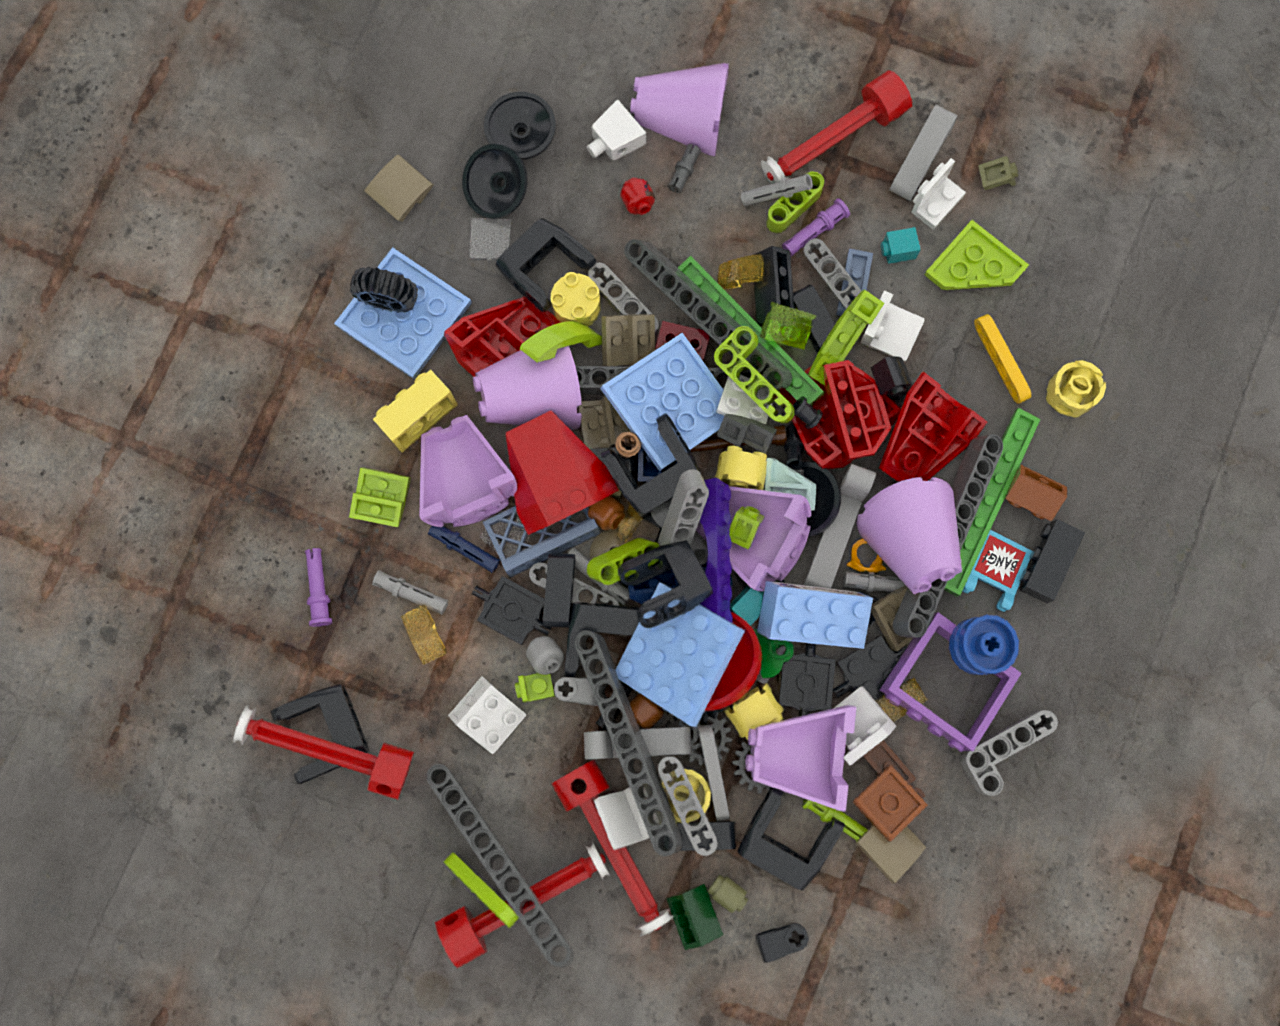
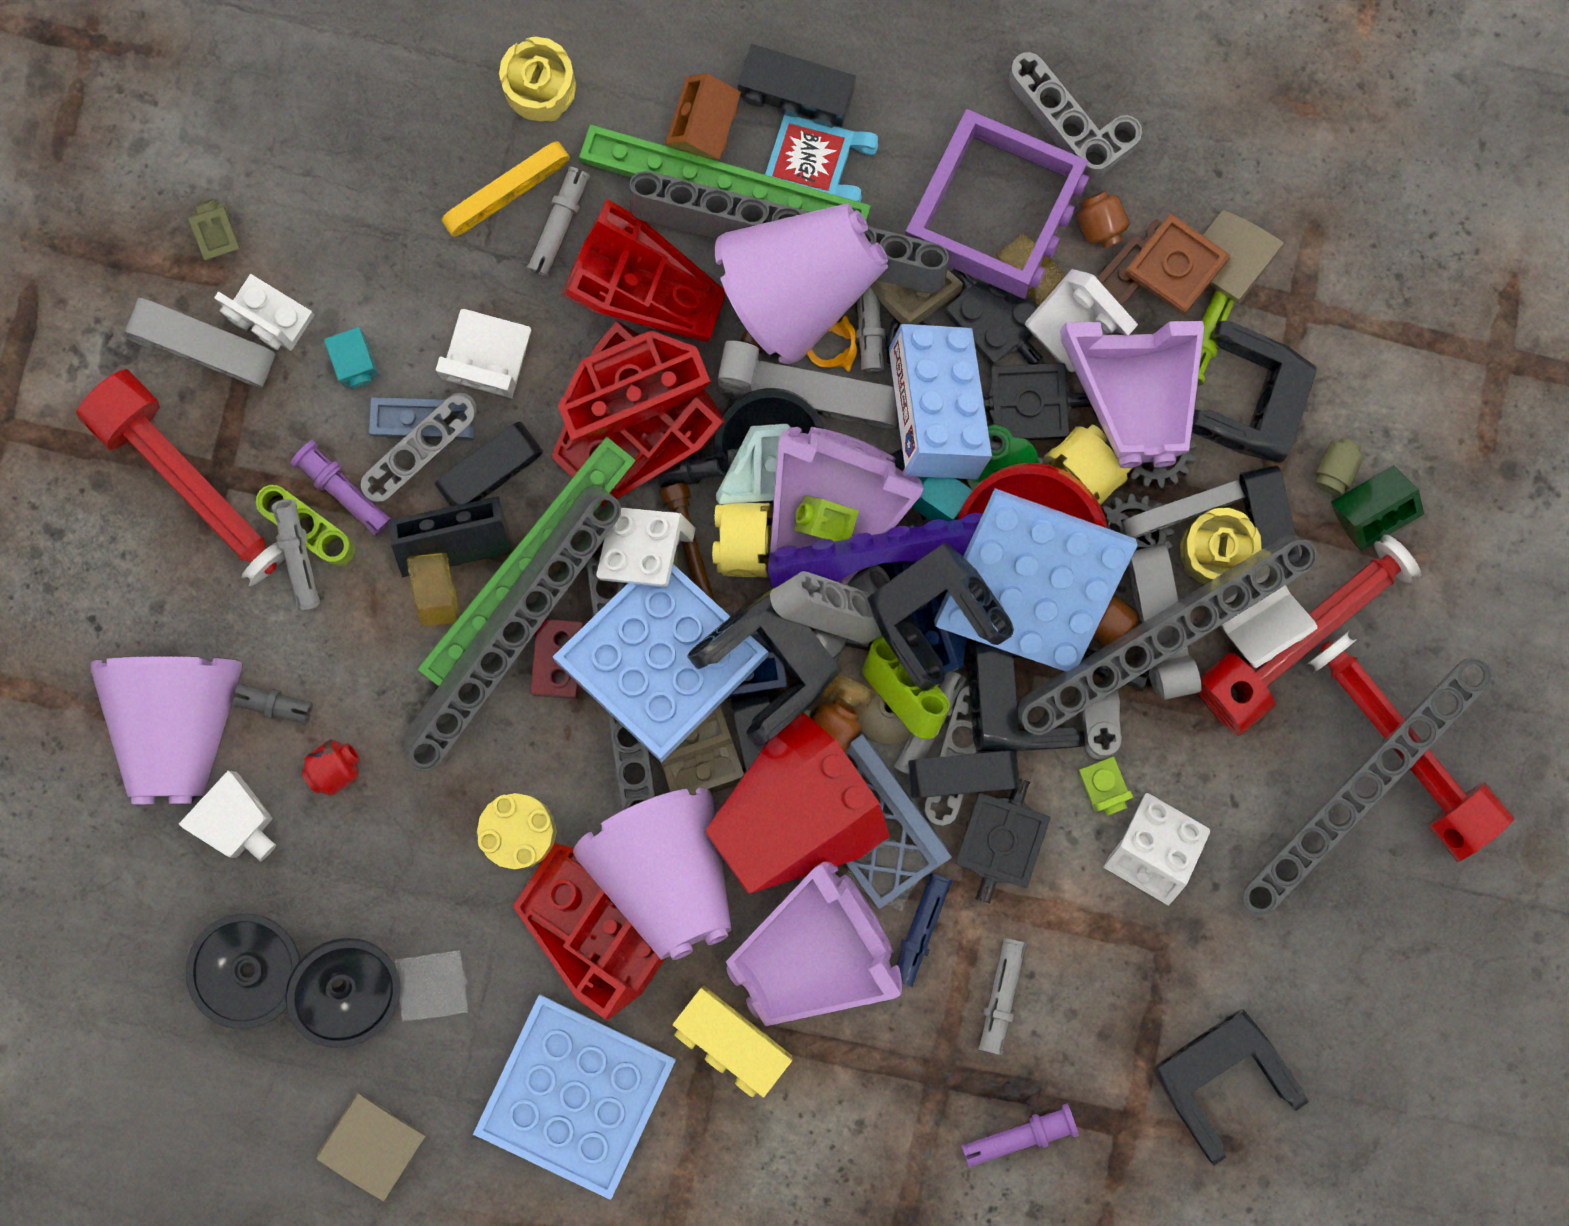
camera: 105 degrees left, 5 degrees up
(380, 497) = (867, 1072): lime slope -> none
(383, 289) = (554, 1126): black gear -> none
(386, 770) = (1267, 972): red piece -> none
(423, 634) = (1061, 963): clear yellow slope -> none
(481, 890) = (1404, 805): lime beam -> none
(530, 250) = (446, 918): black connector -> none
(544, 655) = (1060, 779): light grey head -> none
(547, 341) = (591, 839): lime slope -> none
(624, 299) = (495, 757): light grey beam -> none
(627, 338) = (566, 740): dark tan slope -> none
(627, 439) = (736, 698): medium nougat cone -> none
(683, 807) = (1238, 537): light grey beam -> none
(745, 430) = (689, 527): dark grey slope -> none
(757, 380) = (611, 531): lime beam -> none
(775, 943) = (1389, 387): black piece -> none
(787, 326) = (514, 503): clear neon green plate -> none
(807, 413) = (645, 457): black bush -> none
(846, 332) = (513, 420): lime slope -> none
(892, 378) = (572, 339): black brick -> none
(929, 757) = (1102, 219): none -> dark orange head
(975, 389) = (558, 221): none -> light grey pin
(976, 261) = (360, 245): lime plate -> none
(984, 645) = (944, 161): blue wheel -> none

